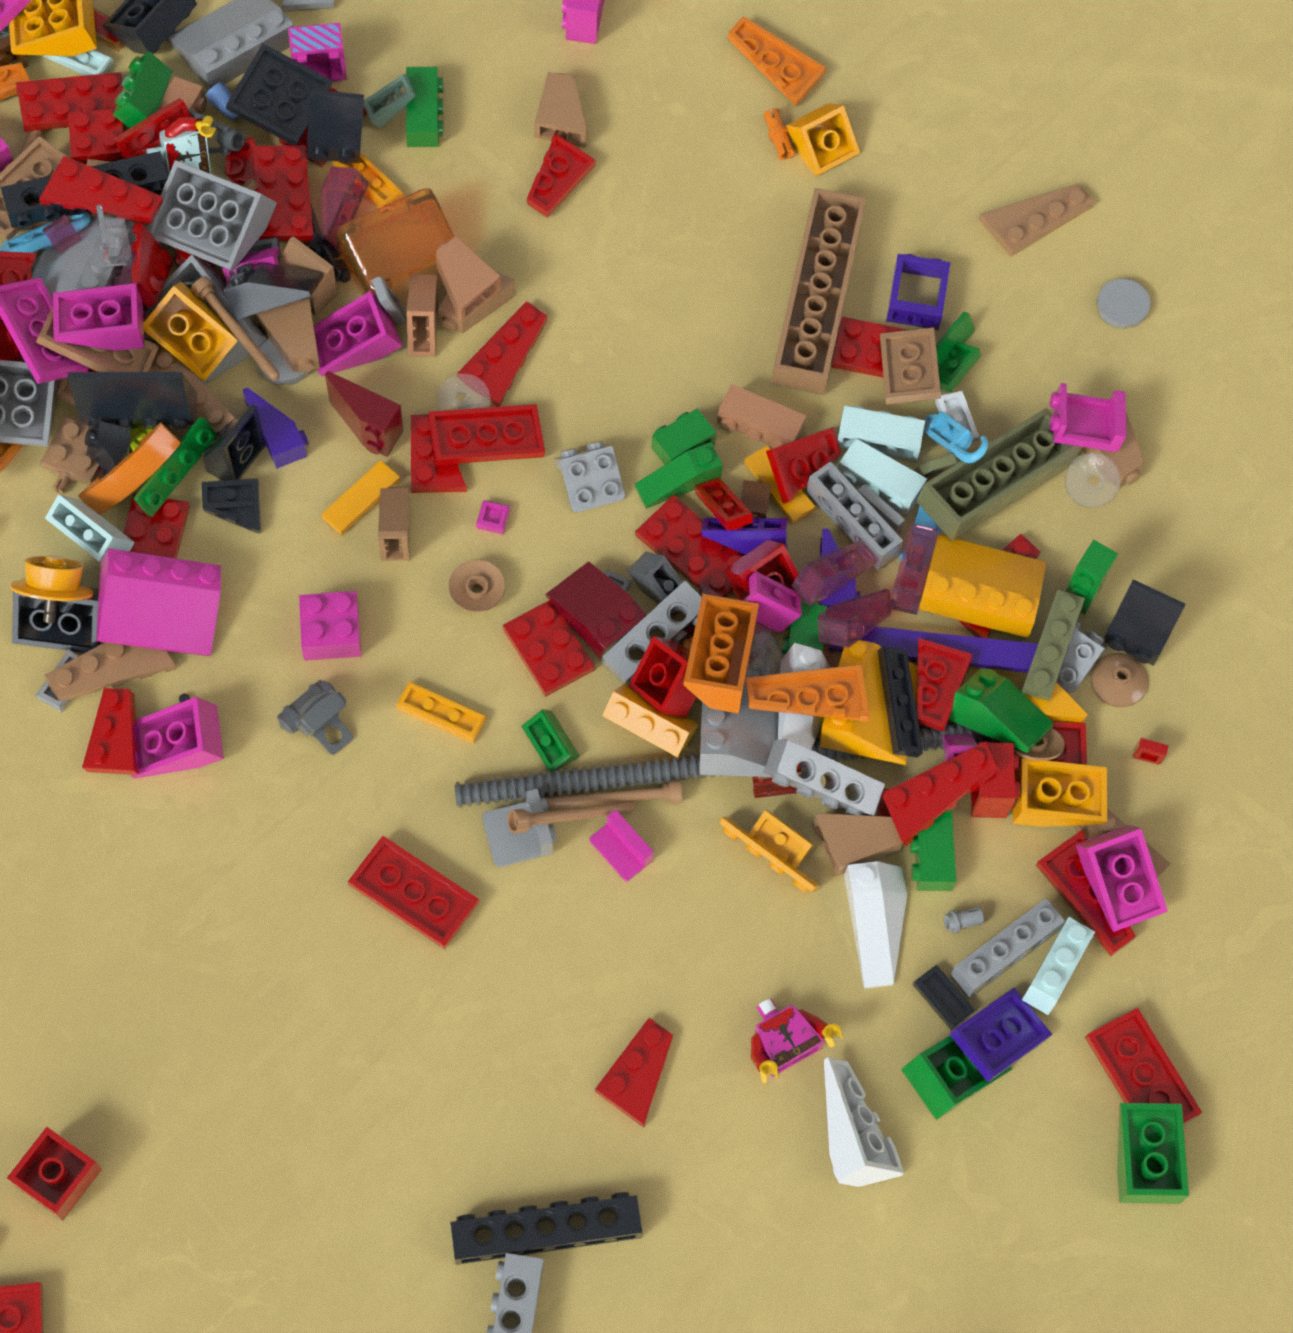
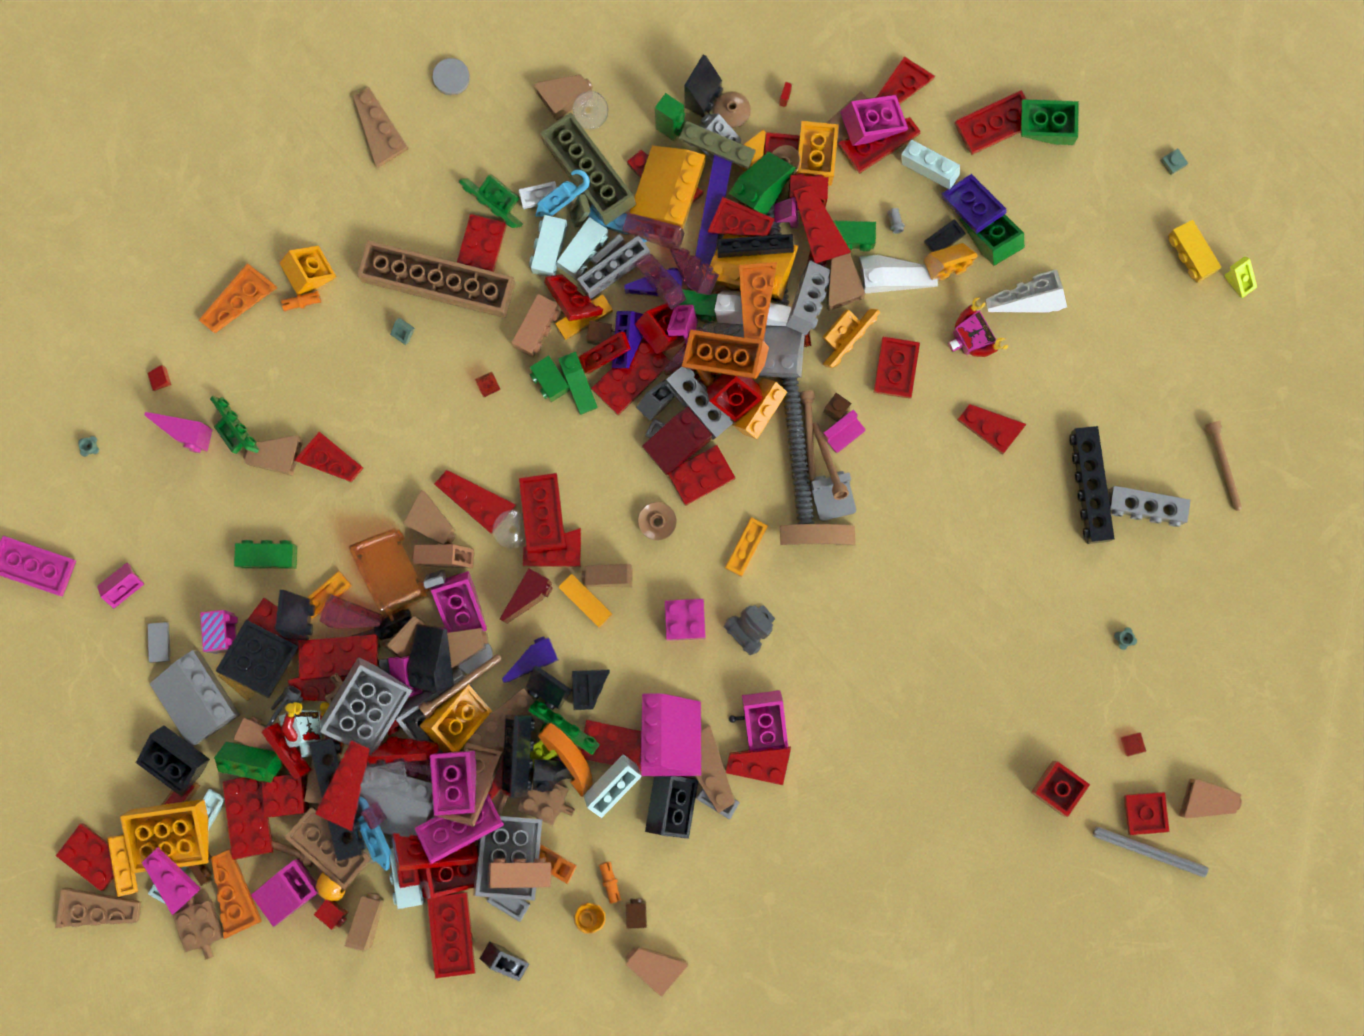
camera: 80 degrees left, 15 degrees up
(53, 580) = (660, 806): light orange piece -> none
(122, 1299) = (1133, 744): none -> clear red tile
(218, 98) = (252, 703): medium blue cone -> none
(298, 1278) = (1131, 640): none -> sand green plate
(379, 99) = (262, 593): sand green slope -> none
(413, 892) = (873, 565): red plate -> none
(458, 809) = (817, 534): none -> medium nougat slope
(465, 278) = (422, 523): nougat slope -> none
(493, 517) = (602, 510): dark pink tile -> none
(550, 740) = (768, 475): green slope -> none
(591, 476) = (574, 443): light grey bracket -> none
(598, 57) = (231, 429): none -> green bracket
(658, 832) = (837, 407): none -> reddish brown brick
(671, 361) = (487, 384): none -> clear red plate
(726, 923) = (896, 367): none -> red plate
(743, 254) = (402, 331): none -> sand green plate
(900, 995) = (949, 261): none -> light orange slope
(910, 366) = (504, 220): medium nougat plate -> none
(915, 313) = (456, 216): dark purple window -> none
(1007, 948) = (917, 195): light grey brick -> none
(1088, 419) = (552, 104): dark pink panel -> none
(1193, 930) = (906, 80): none -> red wing

